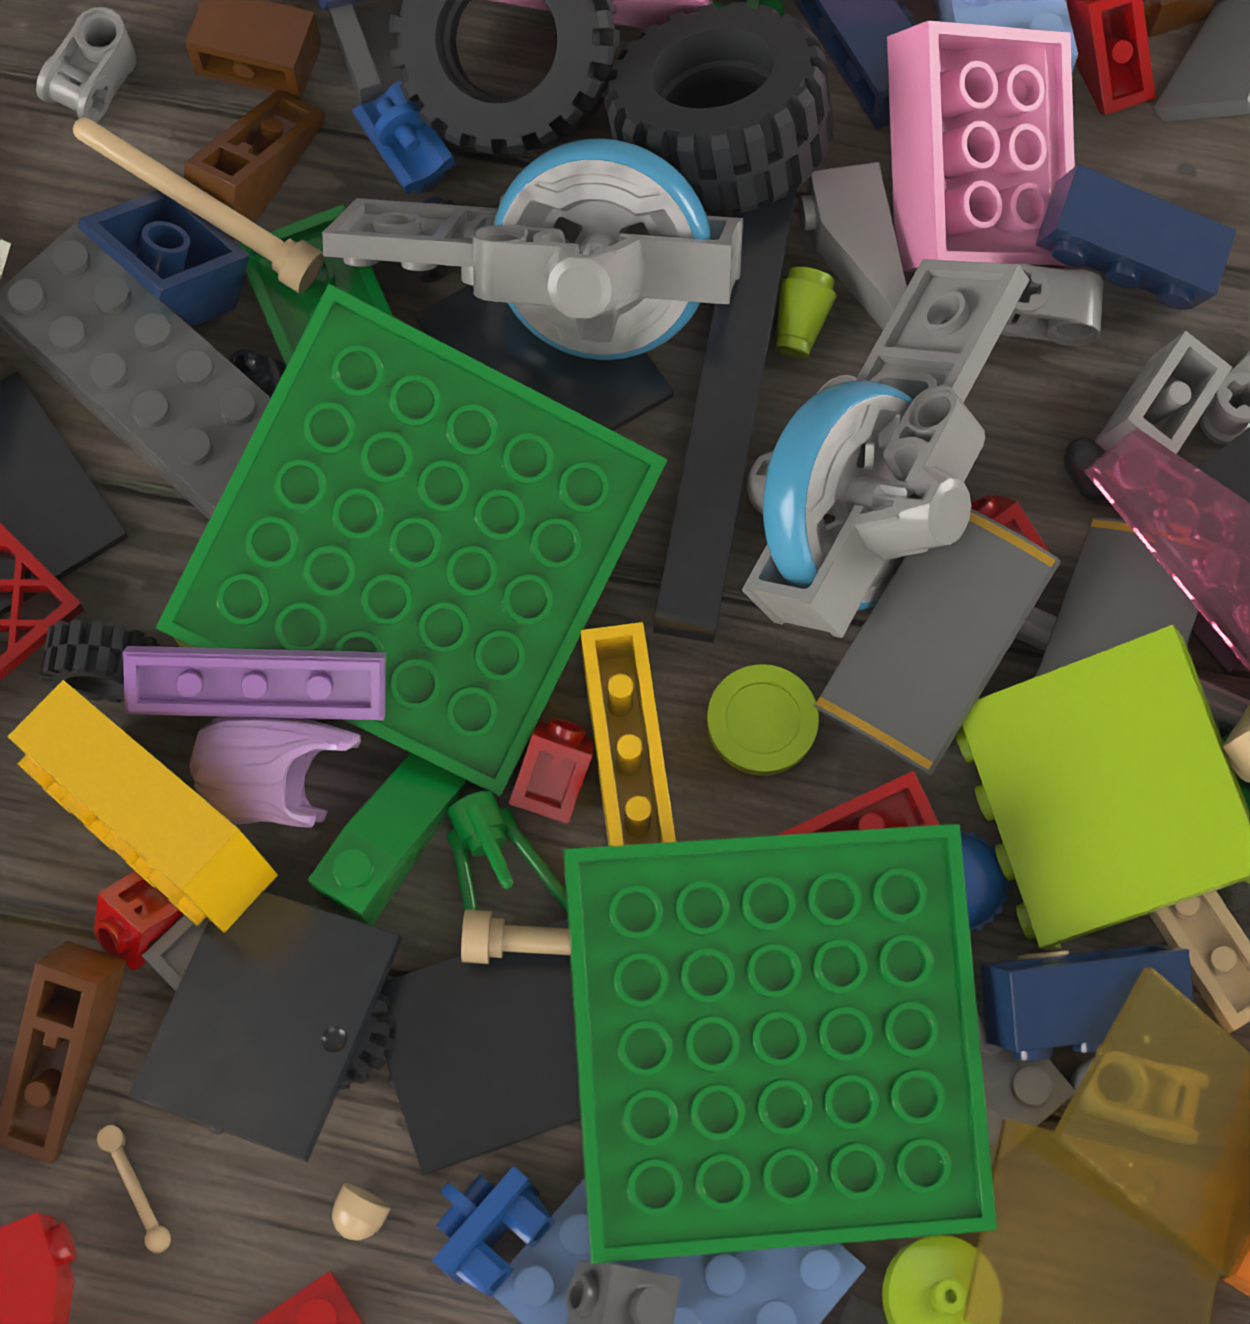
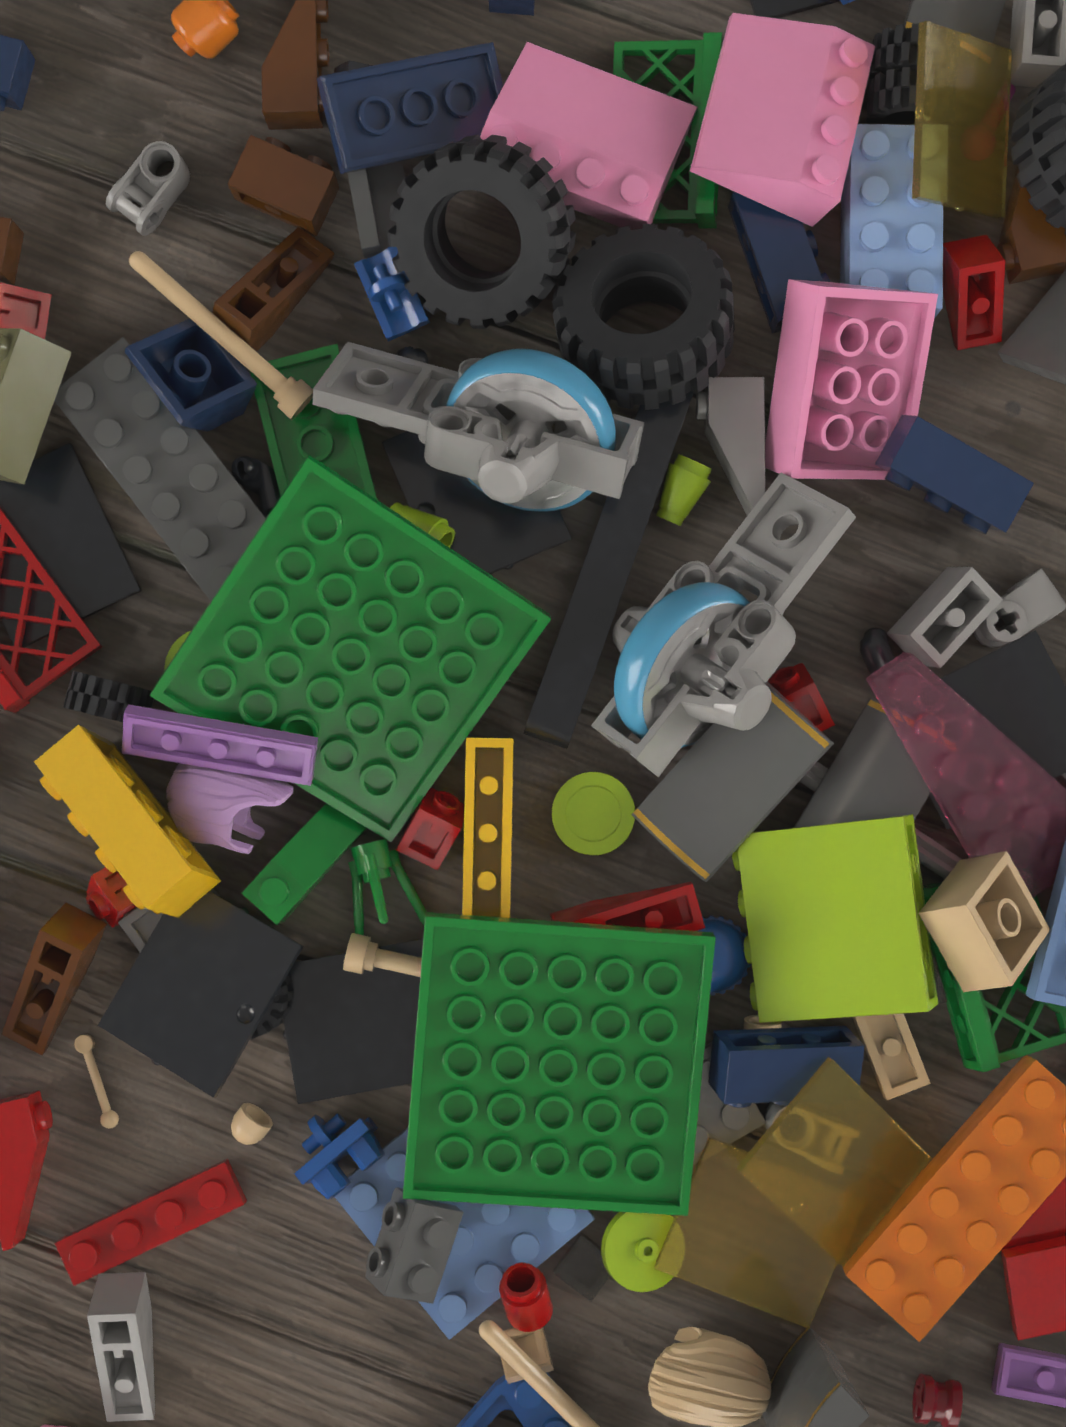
camera: 10 degrees right, 15 degrees up
(1058, 306) = (882, 515): light grey piece -> none

